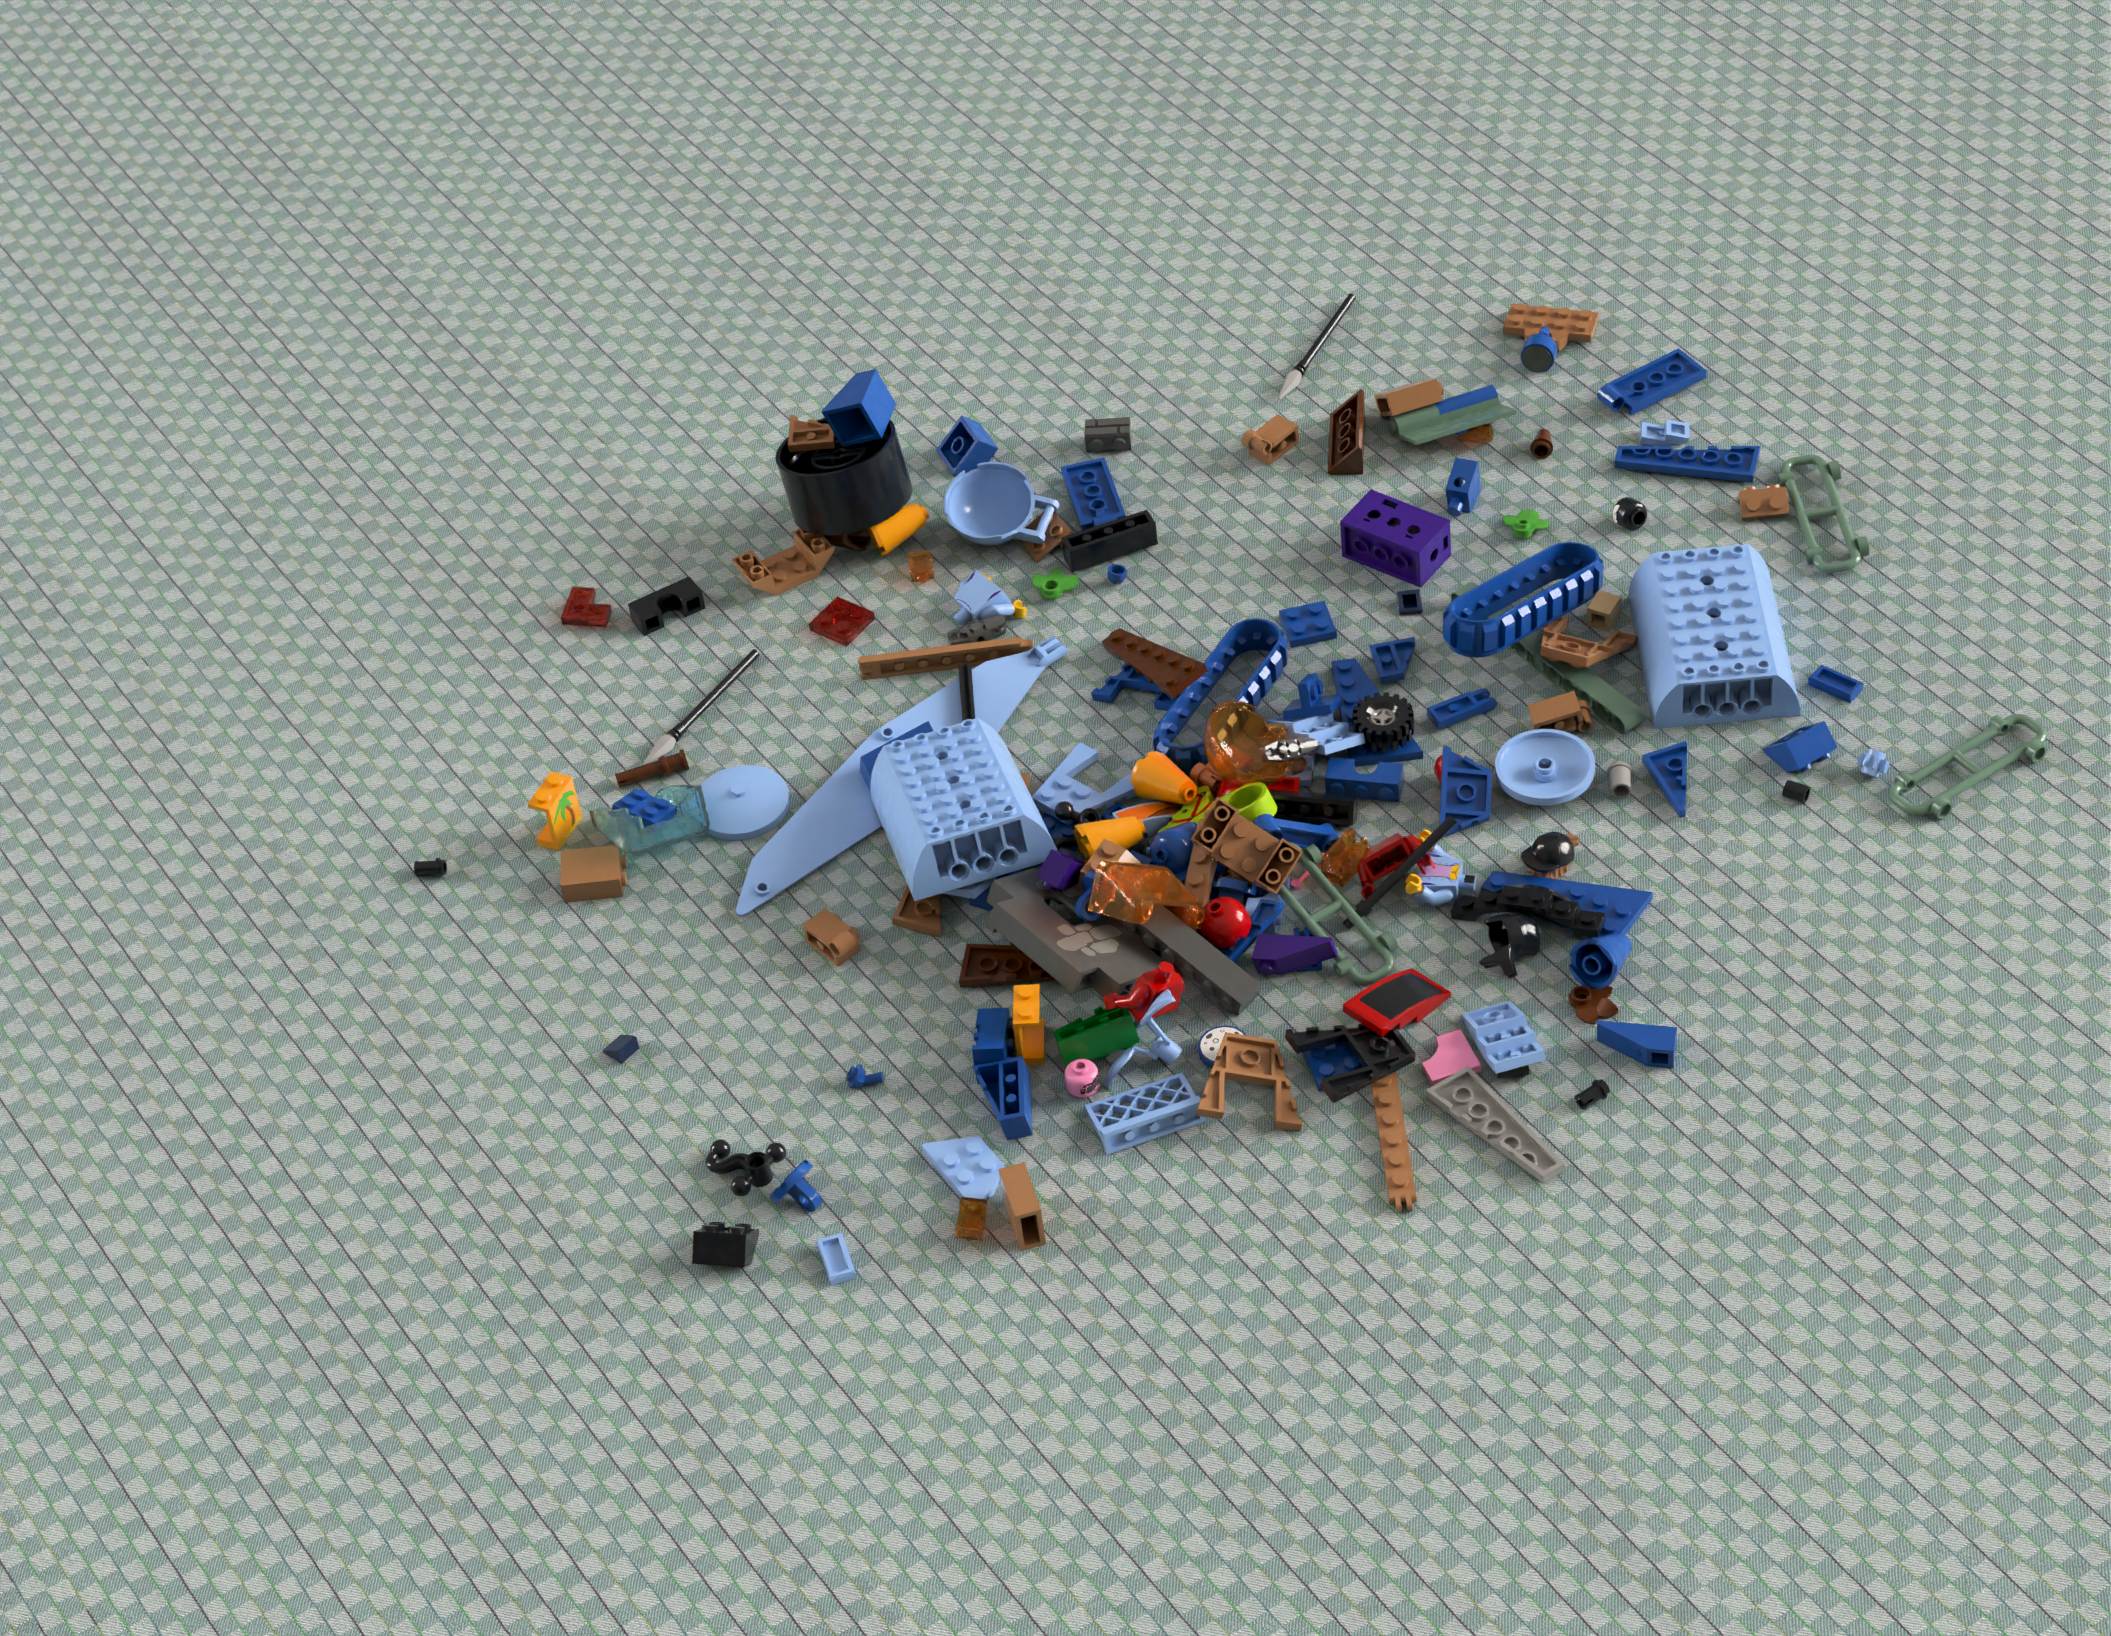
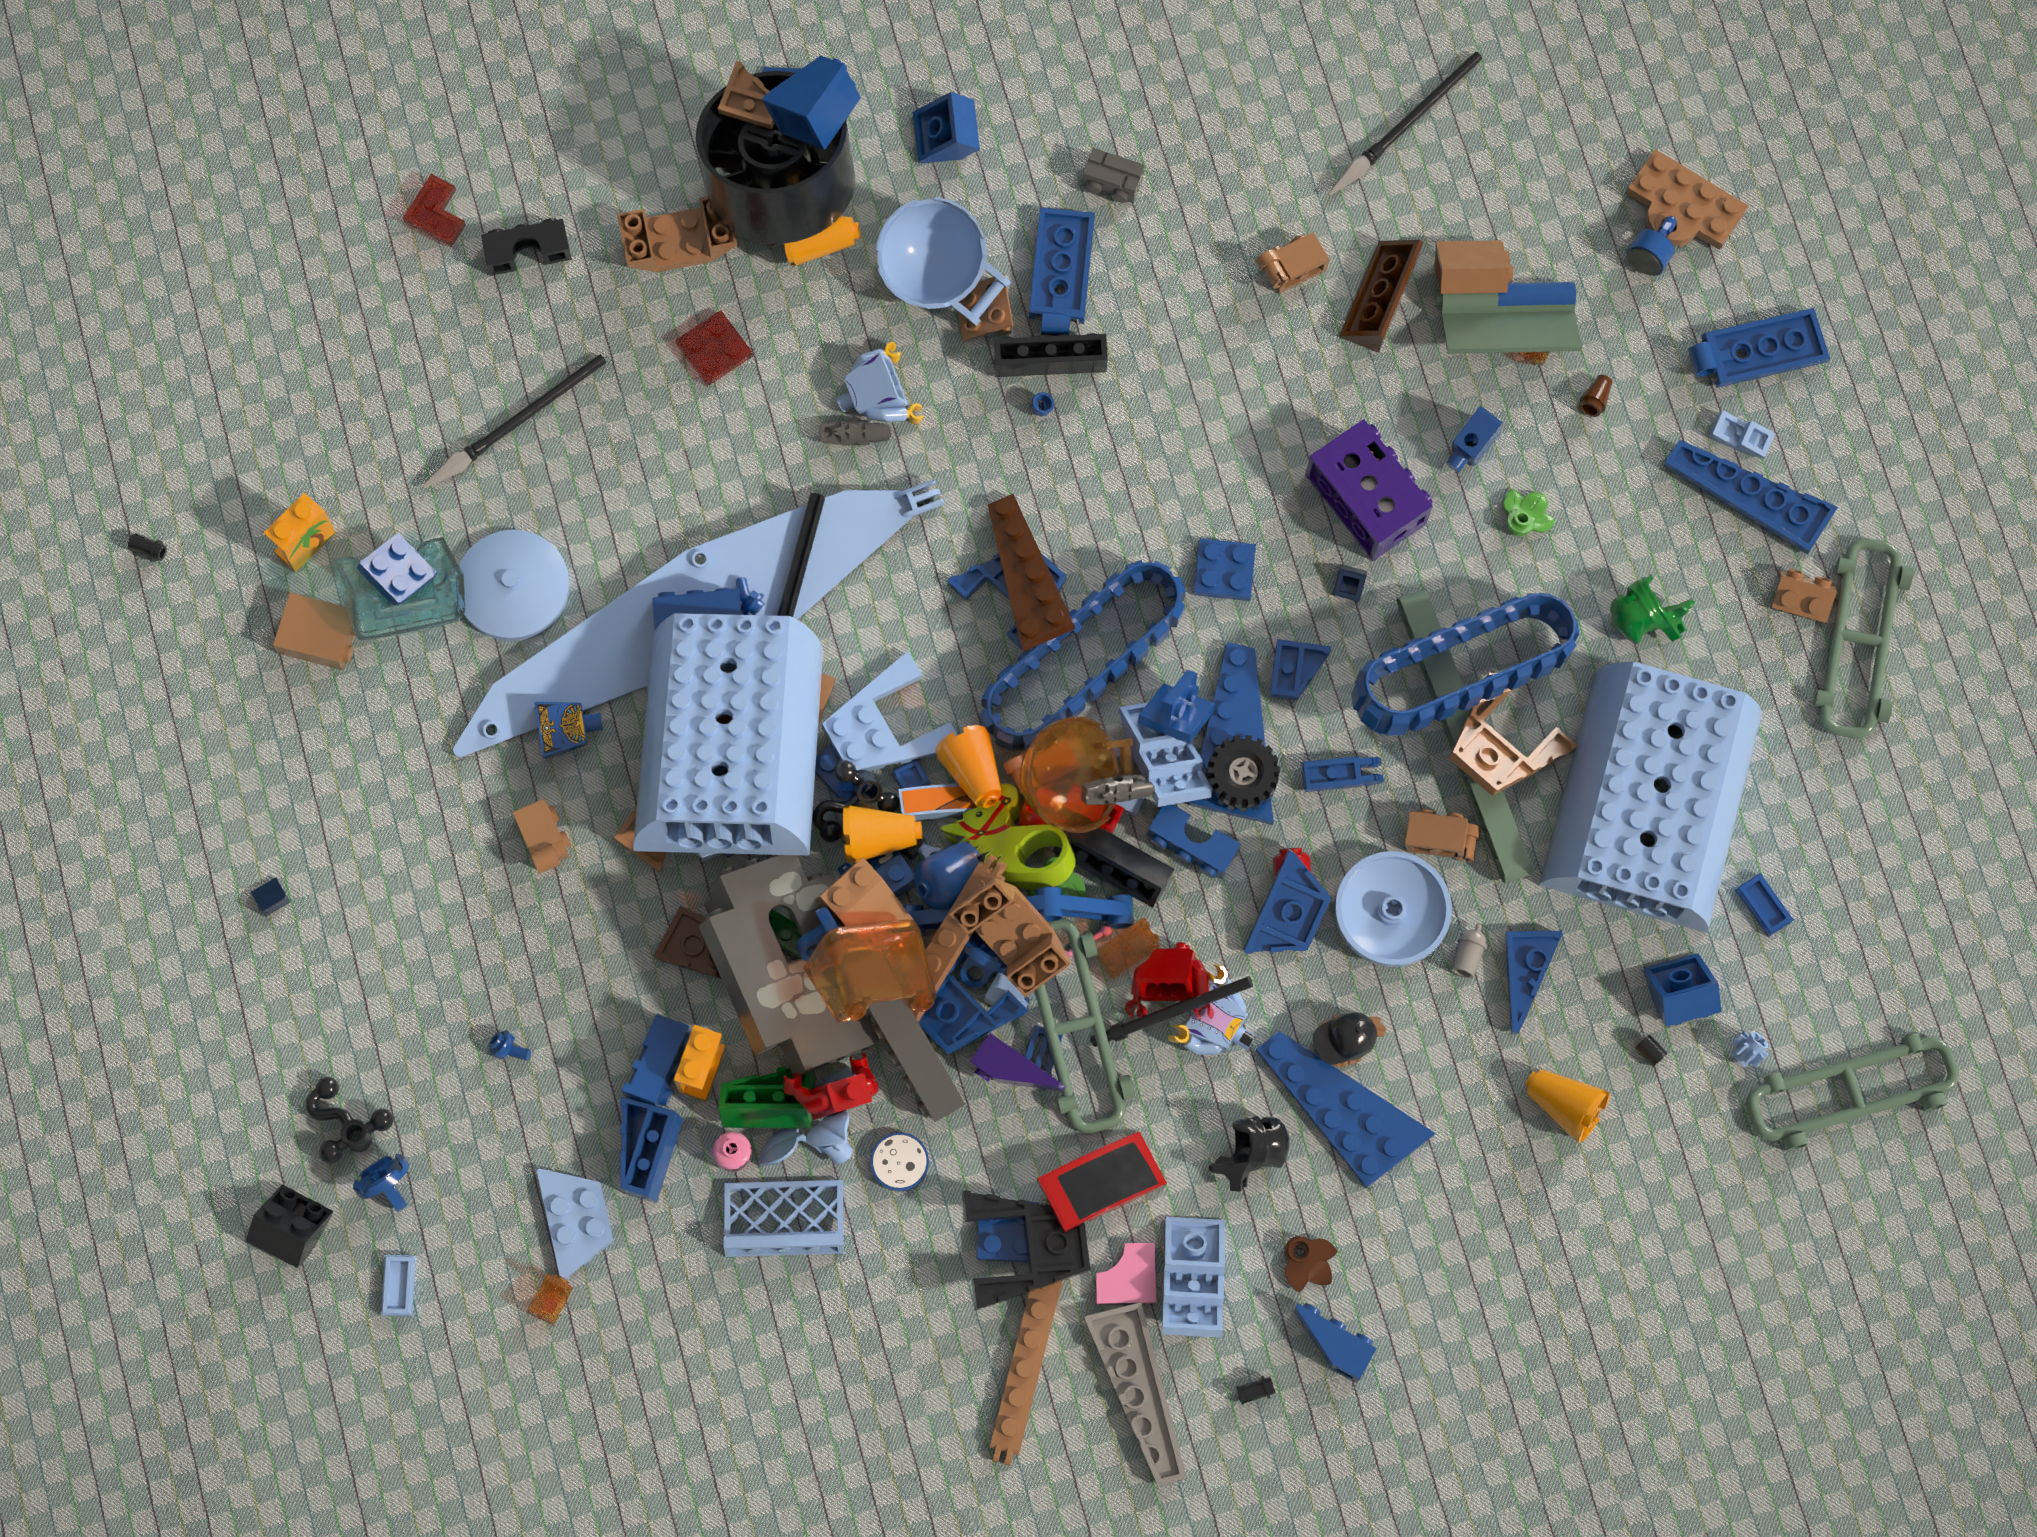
camera: 10 degrees right, 30 degrees up
(663, 766) = (443, 498): reddish brown pin -> none
(821, 866) = (564, 726): none -> torso
(920, 566) = (828, 302): clear orange bracket -> none
(939, 657) = (795, 456): medium nougat hinge -> none
(1022, 1206) = (605, 1309): medium nougat brick -> none
(1054, 583) = (970, 385): bright green plate -> none
(1060, 871) = (809, 876): dark purple slope -> none
(1225, 922) = (959, 1006): red cylinder -> none
(1255, 1062) = (913, 1203): medium nougat wing -> none
(1532, 901) = (1293, 1107): black piece -> none
(1599, 959) = (1339, 1217): blue cone -> none
(1603, 611) = (1556, 691): tan brick -> none
(1629, 513) = (1647, 552): black head -> none
(1644, 538) = (1642, 612): none -> green piece
(1748, 835) = (1568, 1102): none -> light orange cone

